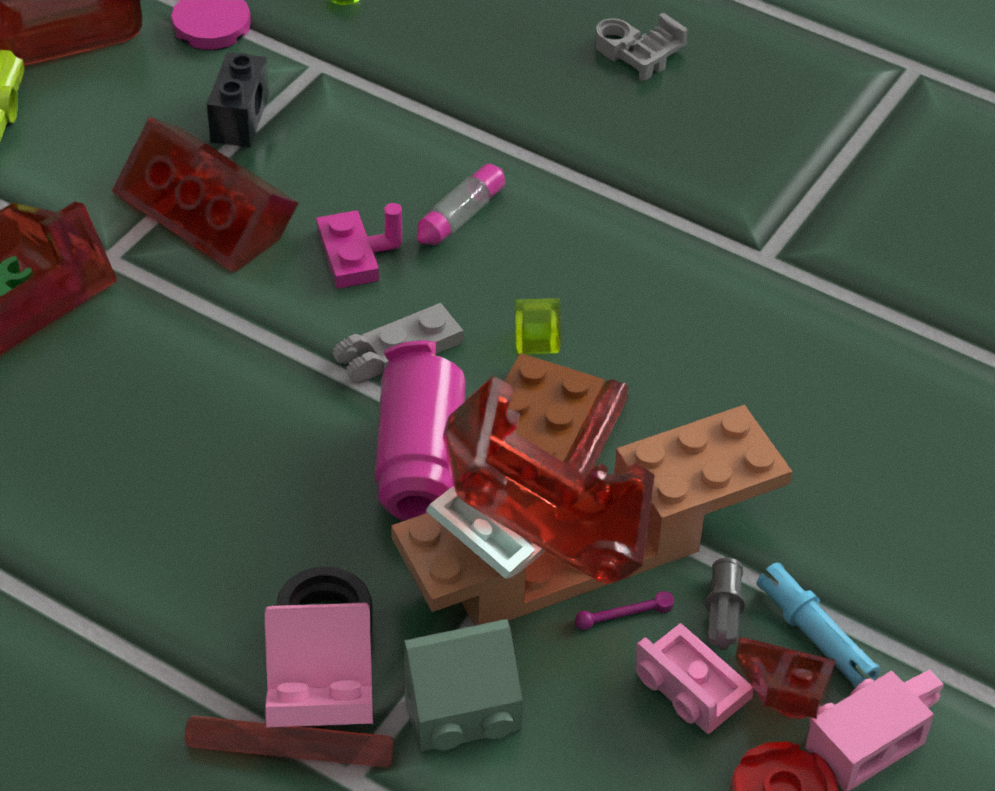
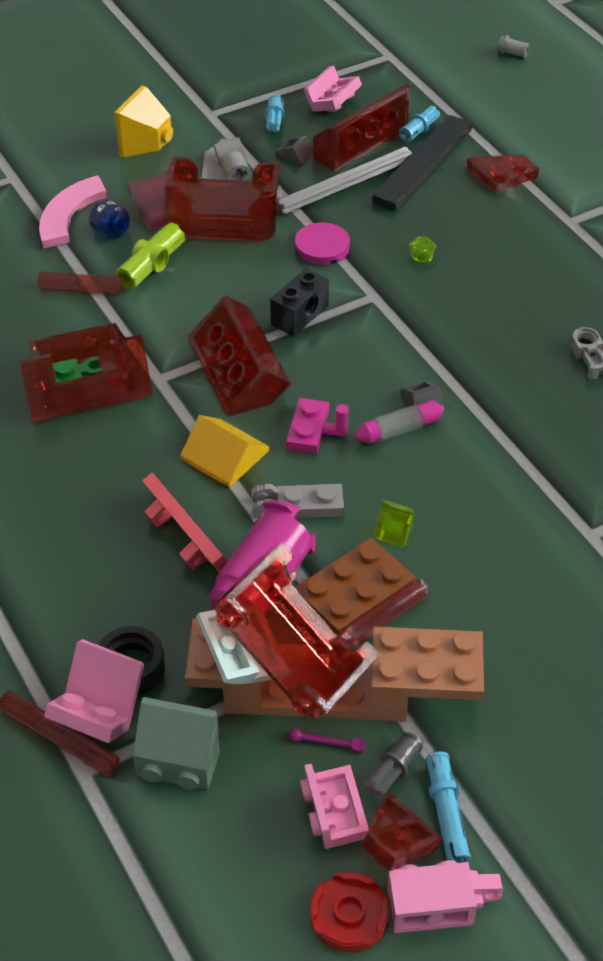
camera: 30 degrees right, 0 degrees up
(258, 318) = (221, 450): none -> yellow slope
(319, 440) = (166, 508): none -> coral hinge
(461, 162) = (422, 393): none -> dark grey slope

